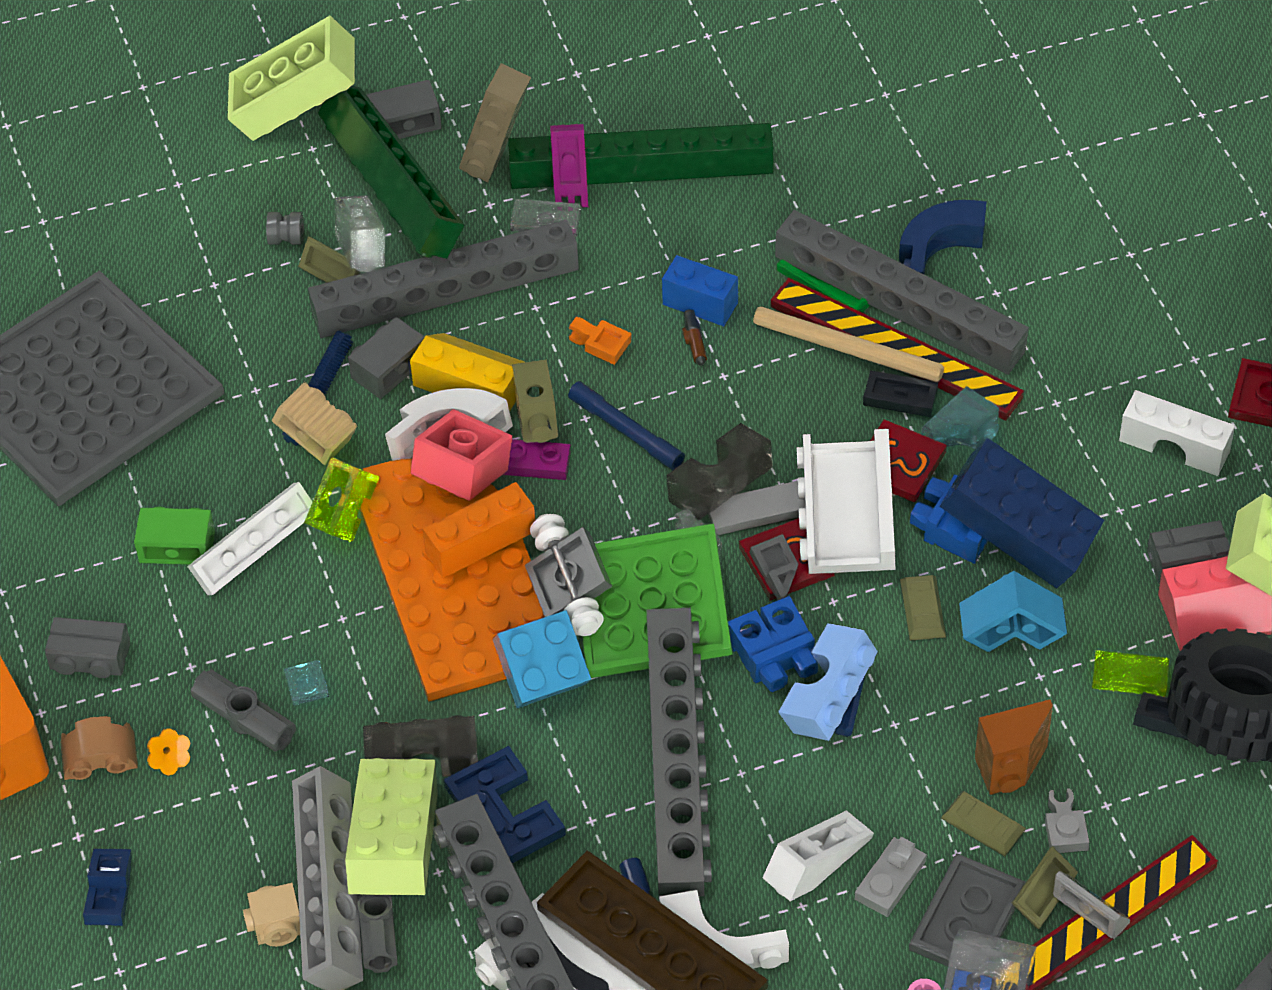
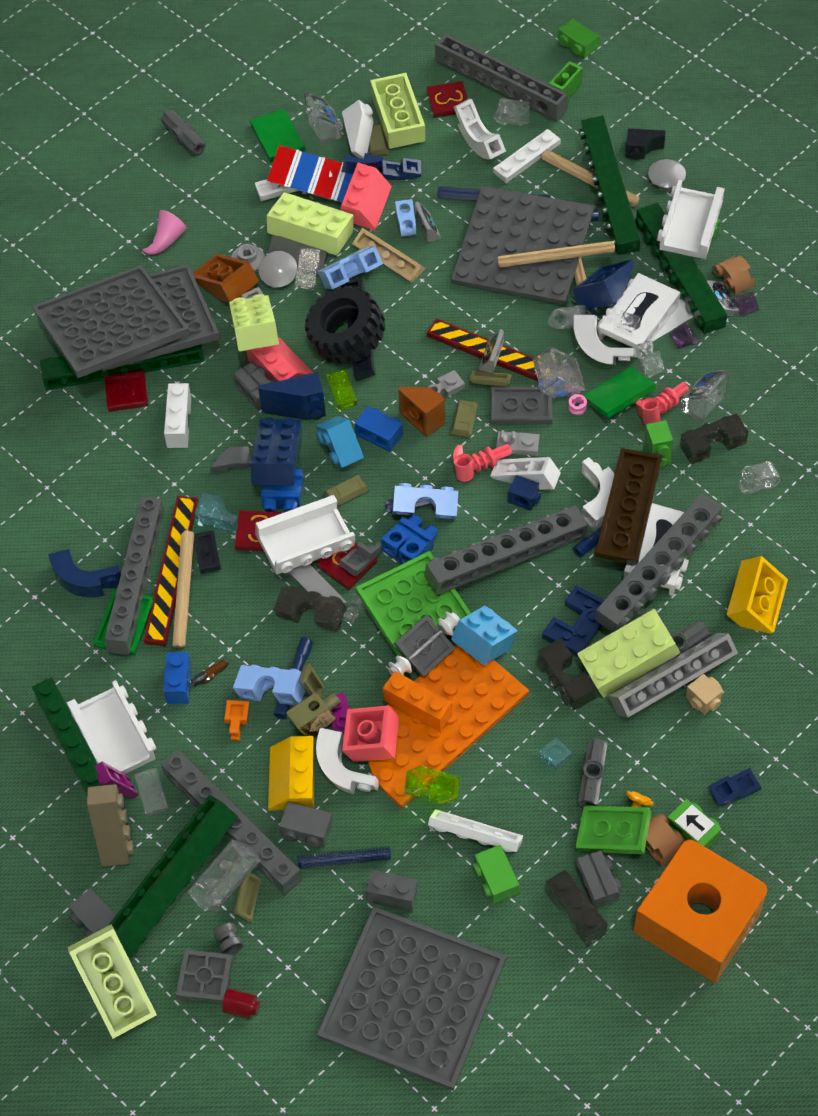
camera: 115 degrees left, 5 degrees up
(37, 600) = (585, 918): none -> clear smoke arch
(80, 797) = (694, 824): none -> brick
(136, 688) = (613, 829): none -> bright green plate
(193, 213) = (240, 1004): none -> dark red brick
(230, 412) = (392, 890): none -> dark grey brick
(250, 187) = (204, 976): none -> dark grey piece
(314, 423) = (380, 833): tan brick -> none
(589, 425) = (310, 681): none -> olive tile
(636, 373) = (255, 680): none -> light blue arch
(663, 200) = (113, 730): none -> white panel
(776, 826) = (524, 493): none -> dark blue brick
(875, 791) = (466, 464): none -> coral piece
(1016, 682) = (379, 429): none -> blue brick
(1061, 471) = (232, 457): none -> dark grey slope
(1118, 595) = (294, 397): none -> dark blue slope

